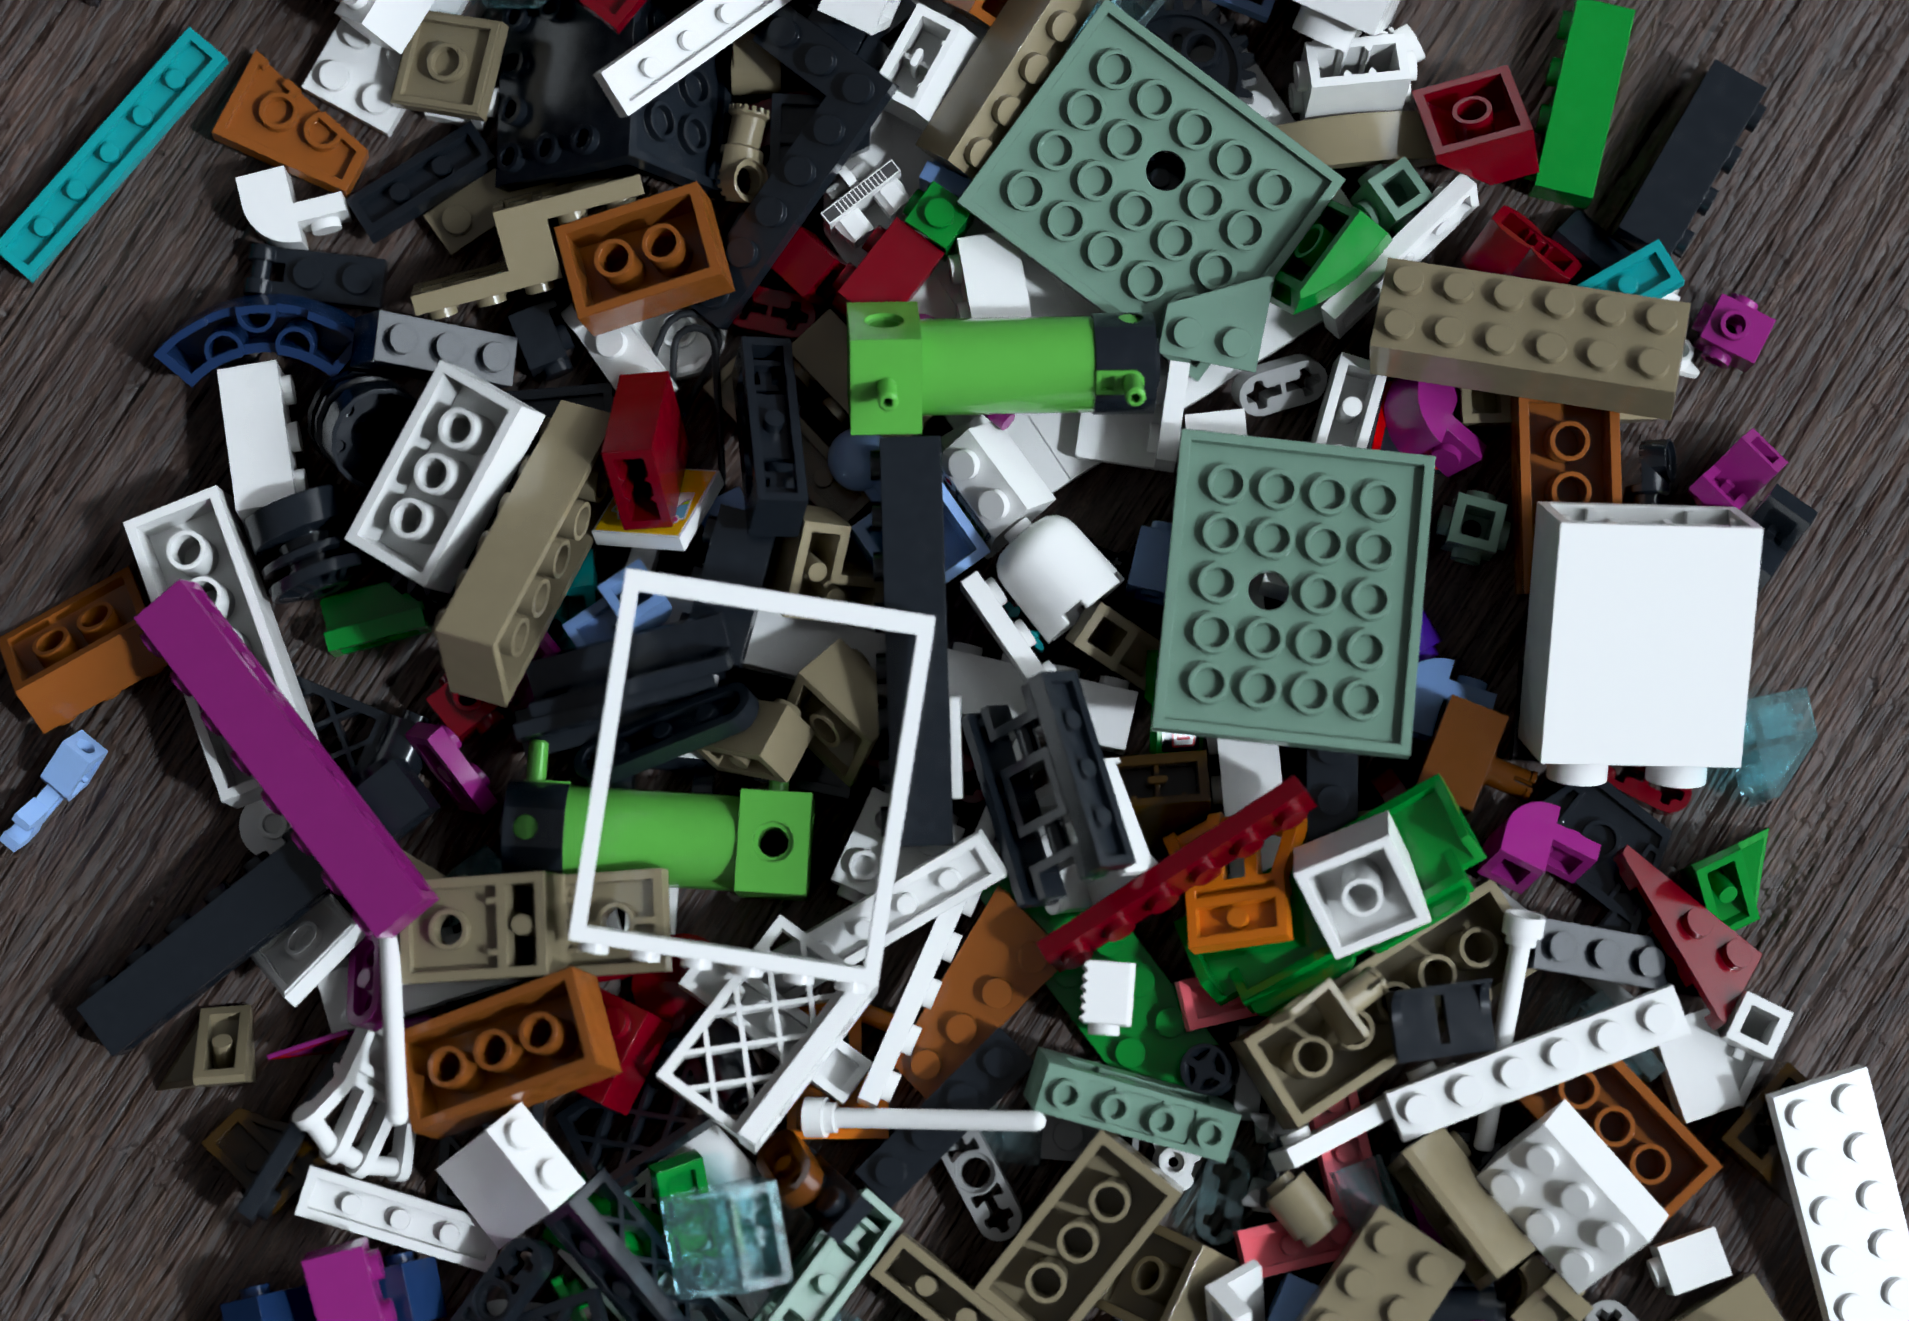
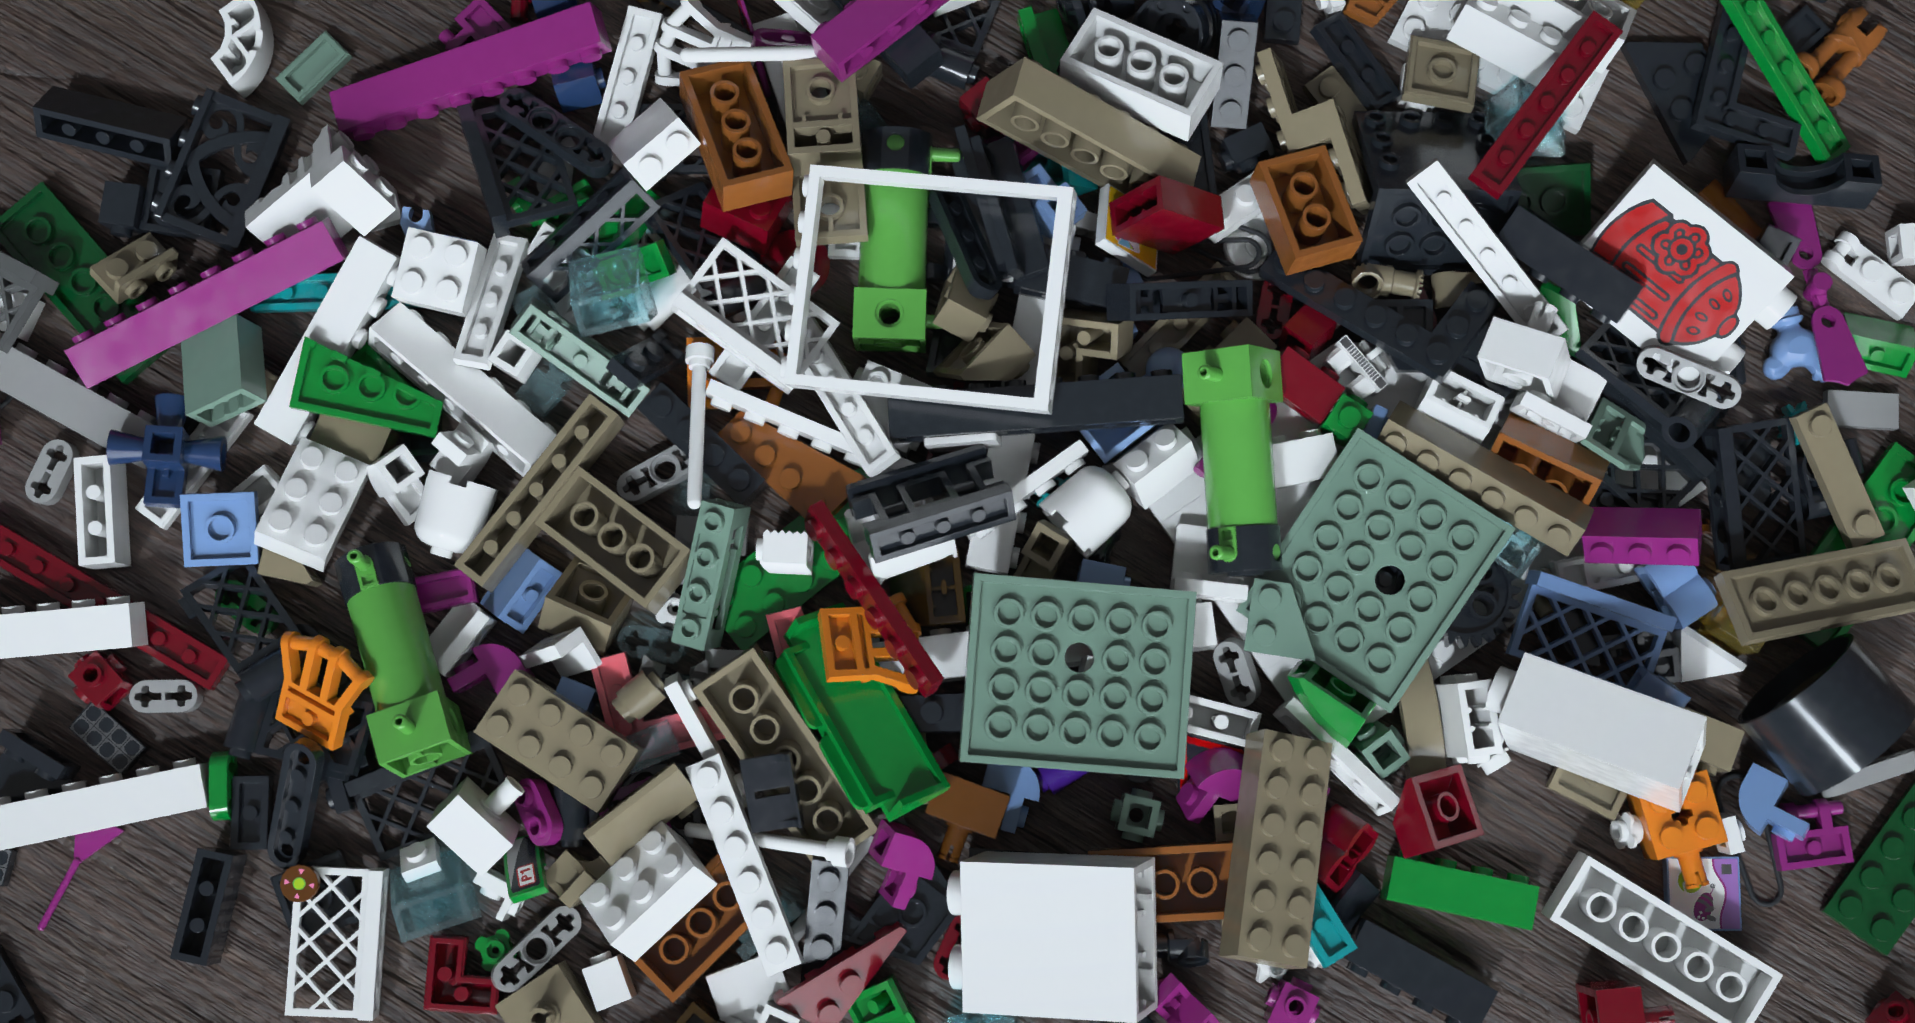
camera: 90 degrees right, 0 degrees up
(460, 778) = (950, 88): magenta plate -> none
(793, 1167) = (661, 336): reddish brown plate -> none
(1199, 1066) = (736, 621): black wheel -> none
(1339, 1006) = (778, 715): dark tan bracket -> none
(1360, 885) = (866, 729): white slope -> none

